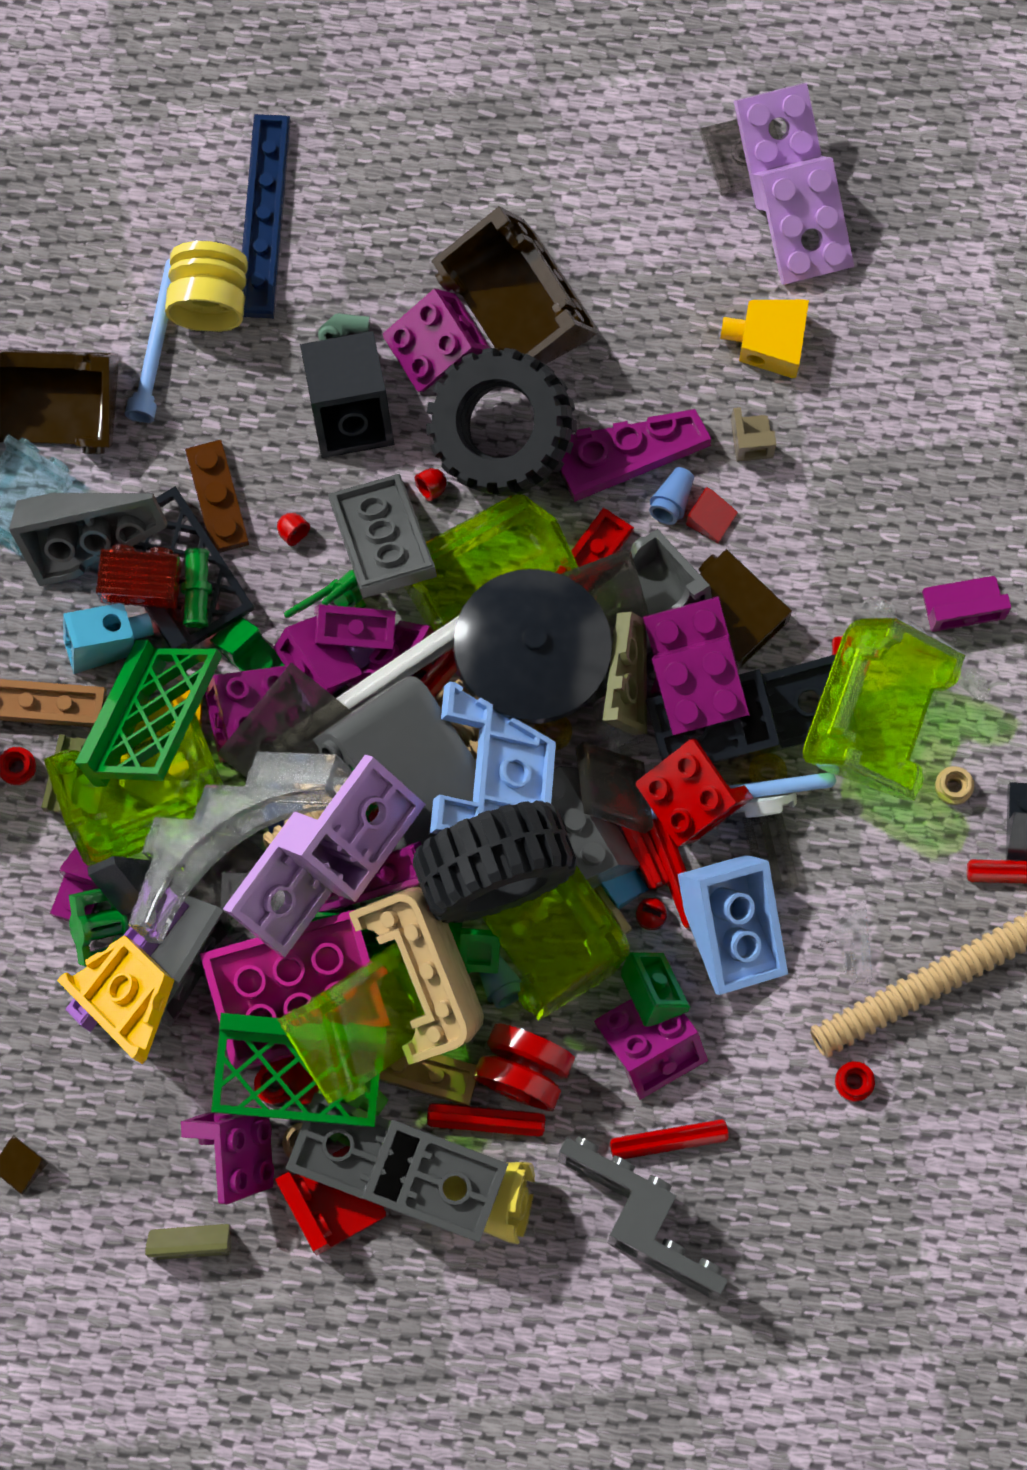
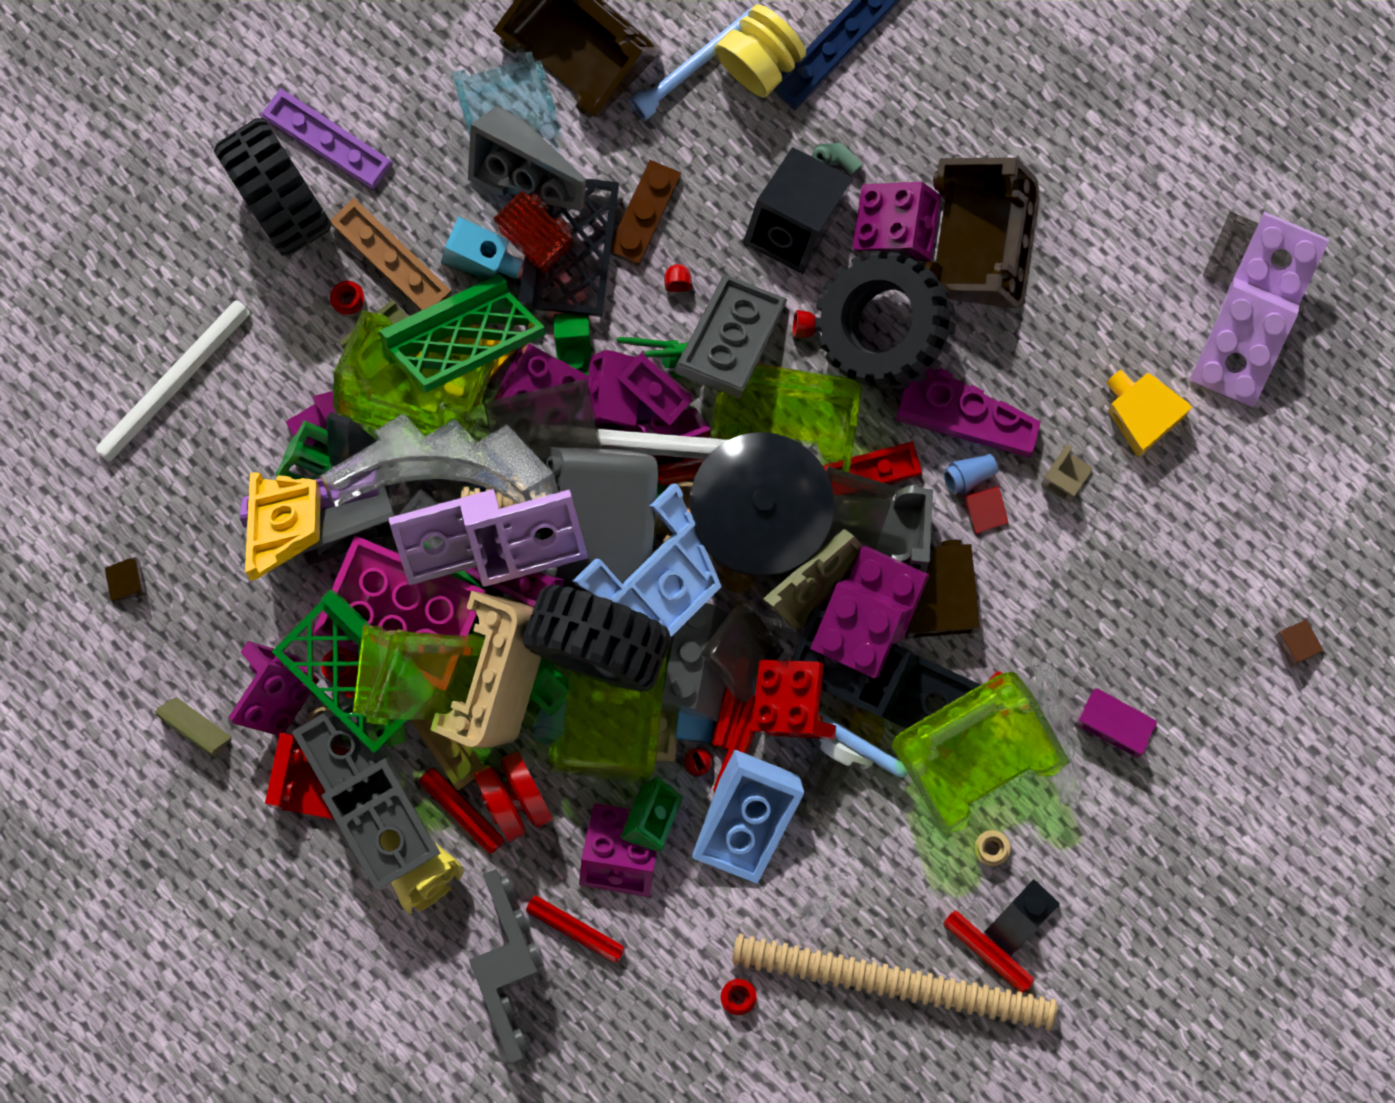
camera: 40 degrees right, 5 degrees up
(196, 588) = (570, 270): green pin -> none

